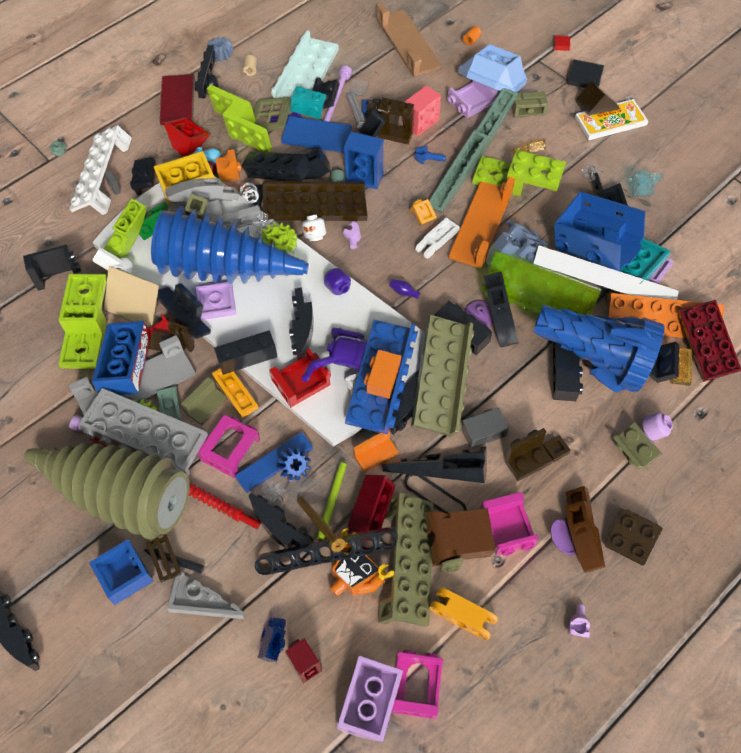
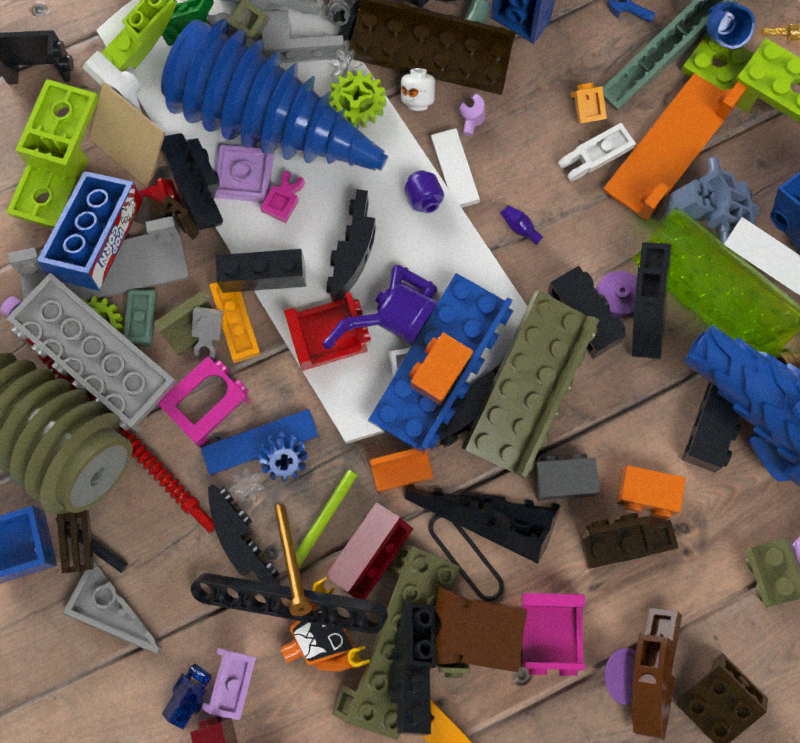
camera: 20 degrees right, 15 degrees up
(218, 398) = (208, 327): none -> light grey plate
(247, 308) = (282, 201): none -> dark pink plate
(302, 617) = (231, 684): none -> lavender panel
(349, 264) = (455, 167): none -> white tile
(423, 570) = (411, 669): none -> black slope
(493, 147) = (730, 24): none -> blue helmet
(541, 417) = (650, 491): none -> orange brick

